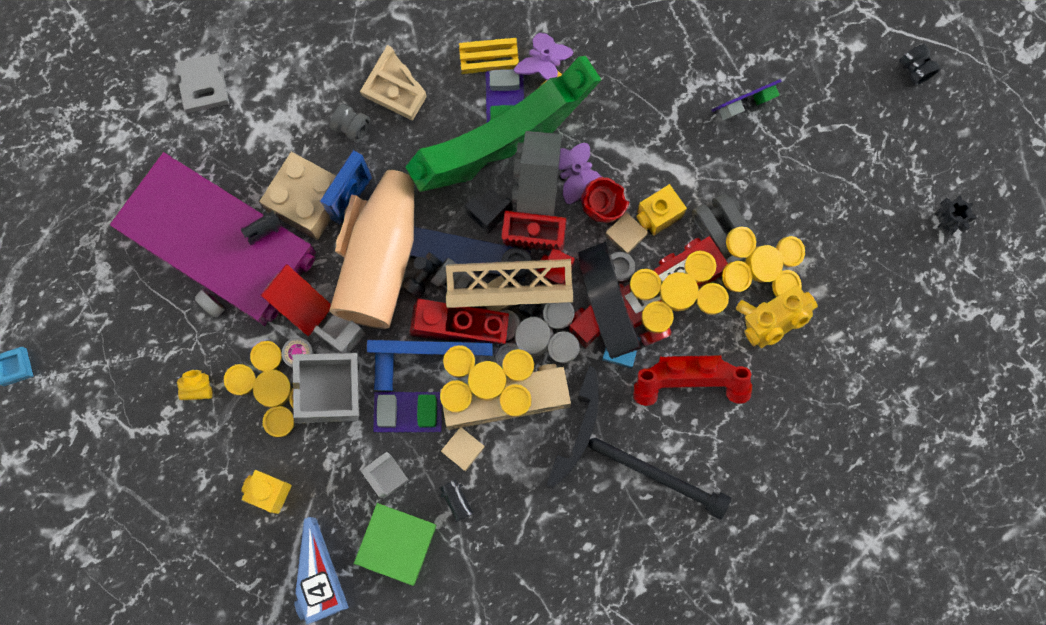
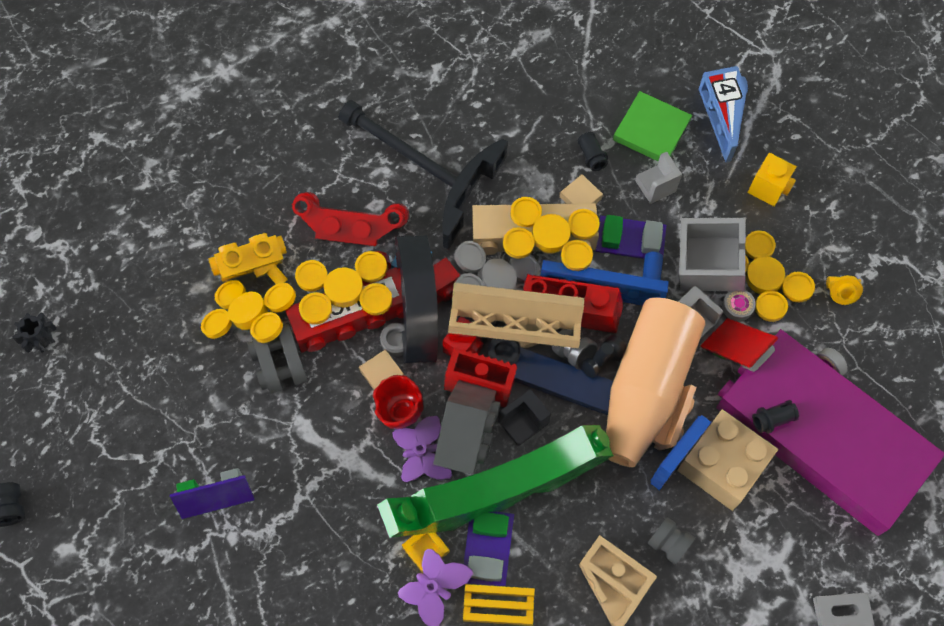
camera: 175 degrees left, 10 degrees down
(660, 210) = (341, 385): yellow brick -> none

